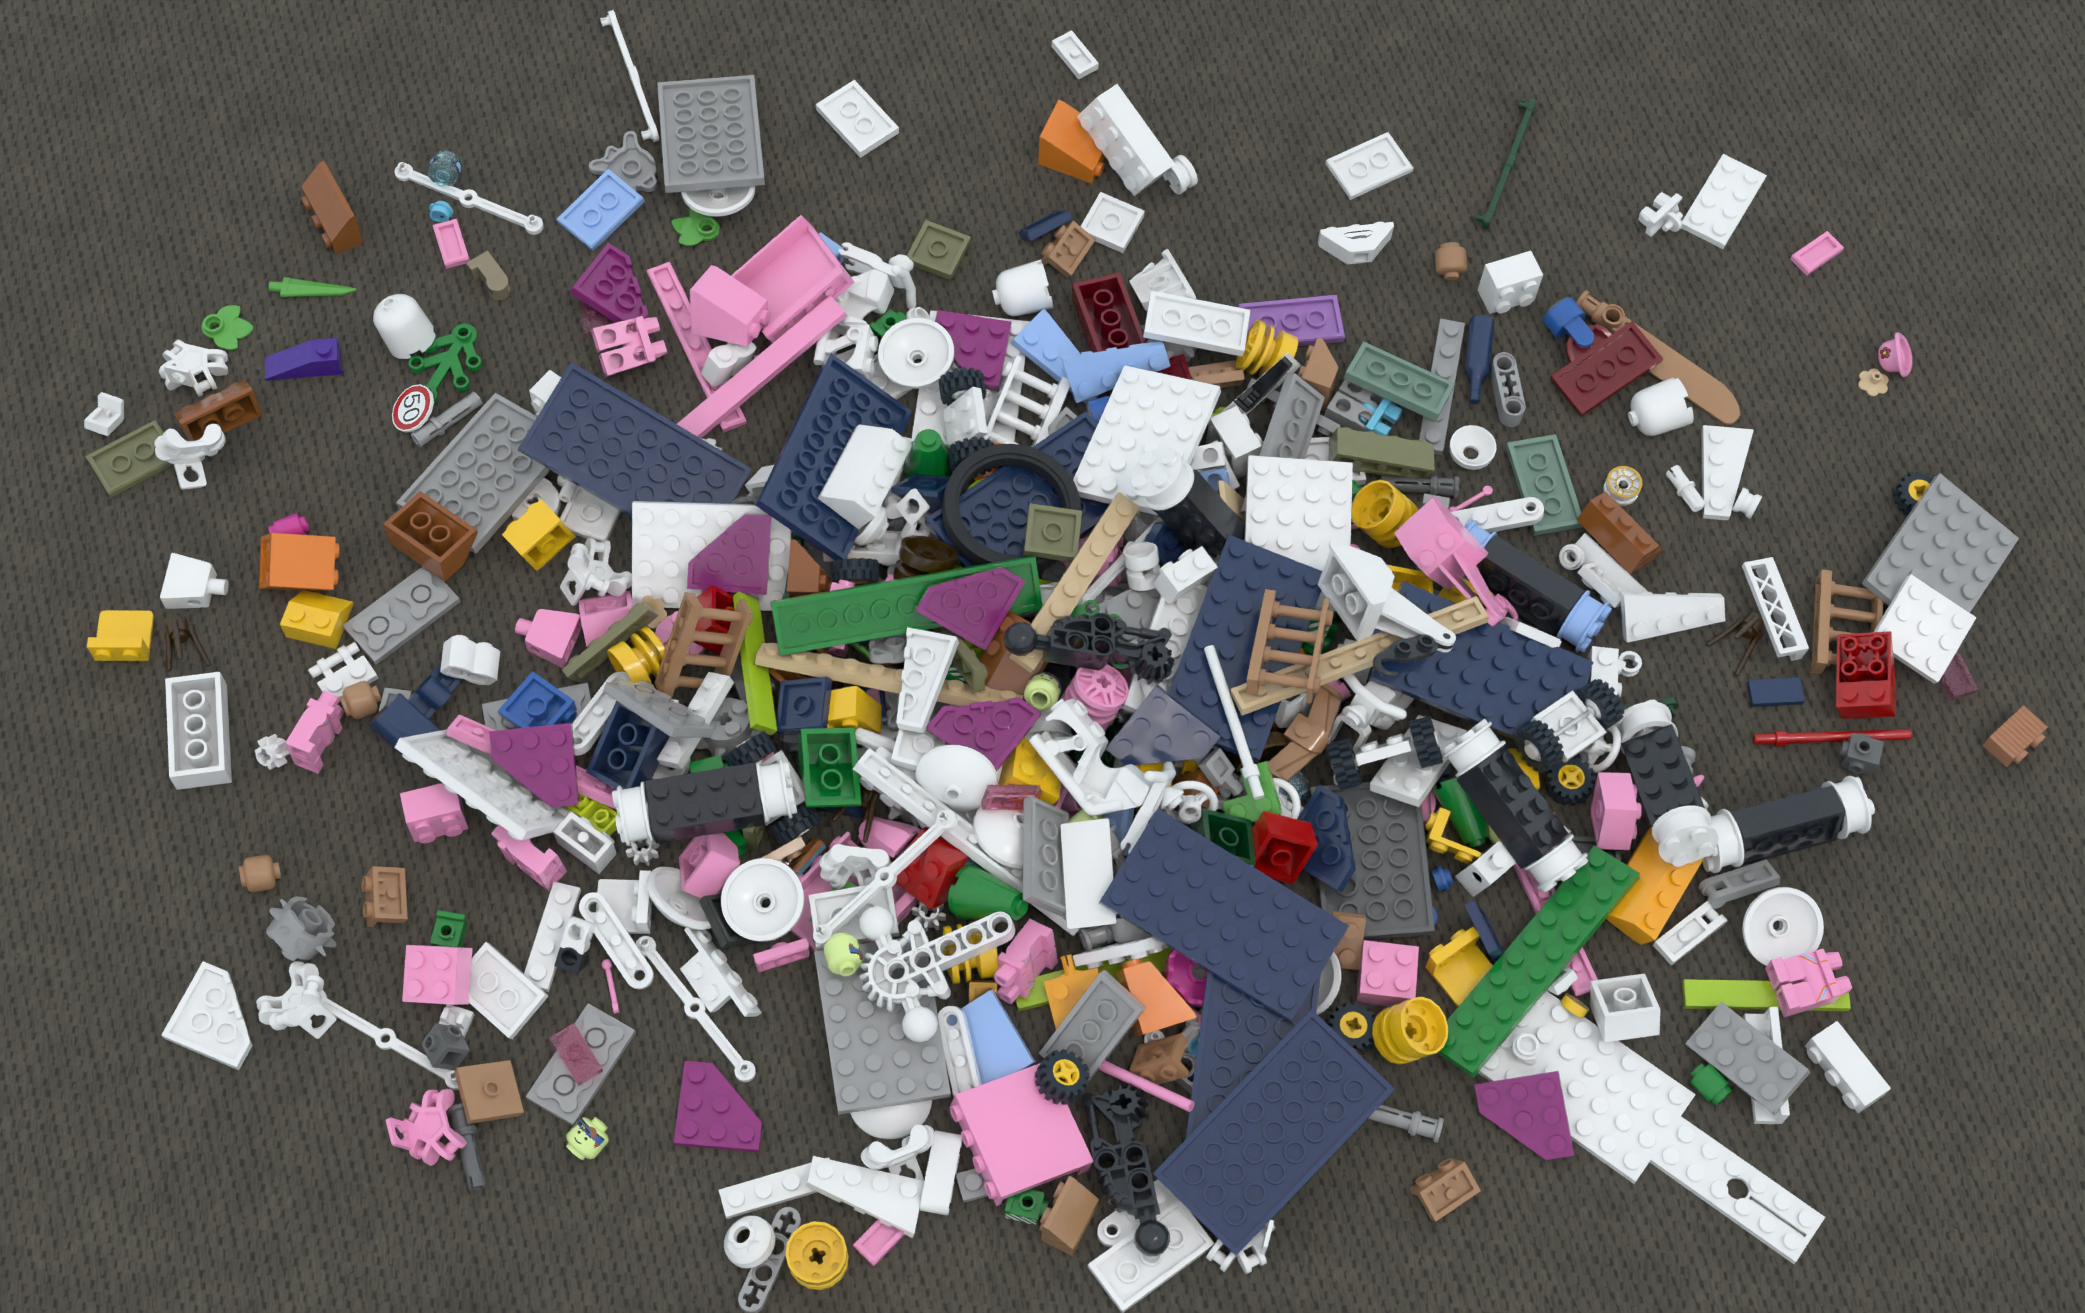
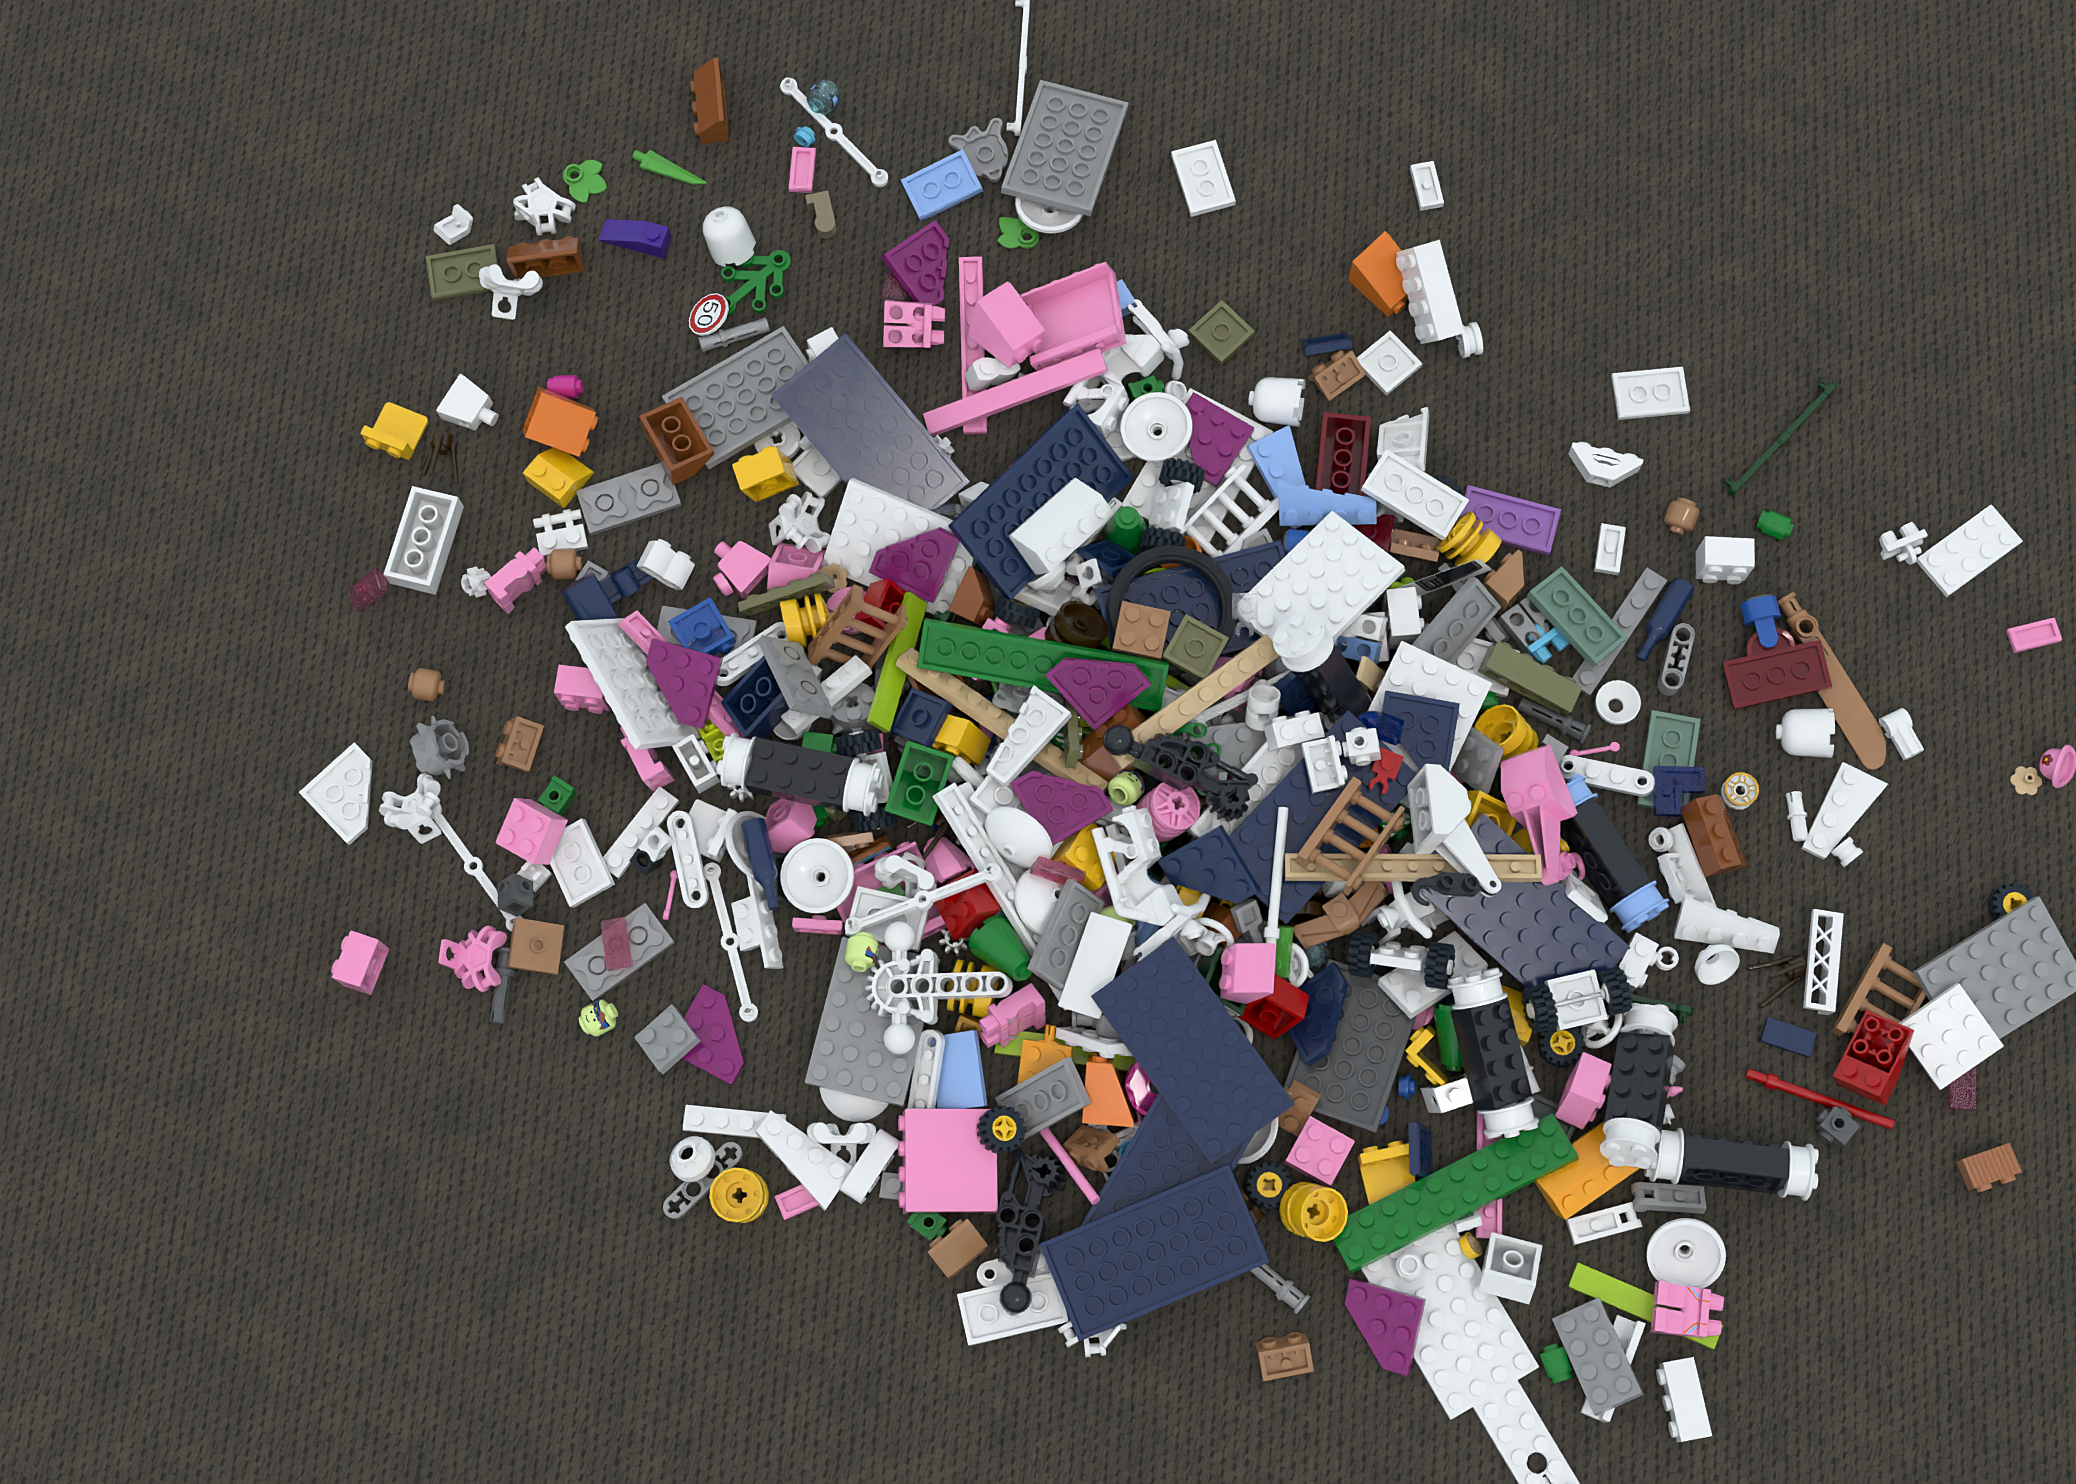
camera: 30 degrees right, 10 degrees up
(156, 801) = (368, 589): none -> clear pink plate
(302, 1181) = (359, 962): none -> bright pink brick
(537, 660) = (722, 584): none -> bright pink tile
(671, 1129) = (667, 1039): none -> light grey plate
(697, 902) = (761, 857): none -> dark blue piece
(992, 536) = (1141, 630): none -> medium nougat plate
(1085, 480) = (1244, 608): none -> clear plate
(1231, 590) = (1324, 764): none -> white bracket
(1245, 817) = (1247, 971): none -> bright pink slope
(1260, 558) = (1362, 746): none -> white brick
(1270, 536) = (1387, 726): none -> clear blue plate
(1290, 573) = (1385, 769): none -> red plate
(1304, 523) = (1427, 726): none -> dark blue plate
(1374, 536) = (1478, 761): none -> light grey plate
(1398, 314) = (1609, 549): none -> white plate
(1539, 239) = (1775, 525): none -> green brick
(1558, 502) = (1671, 782): none -> clear blue plate
(1683, 648) = (1719, 967): none -> white piece
(1739, 377) = (1899, 728): none -> white piece

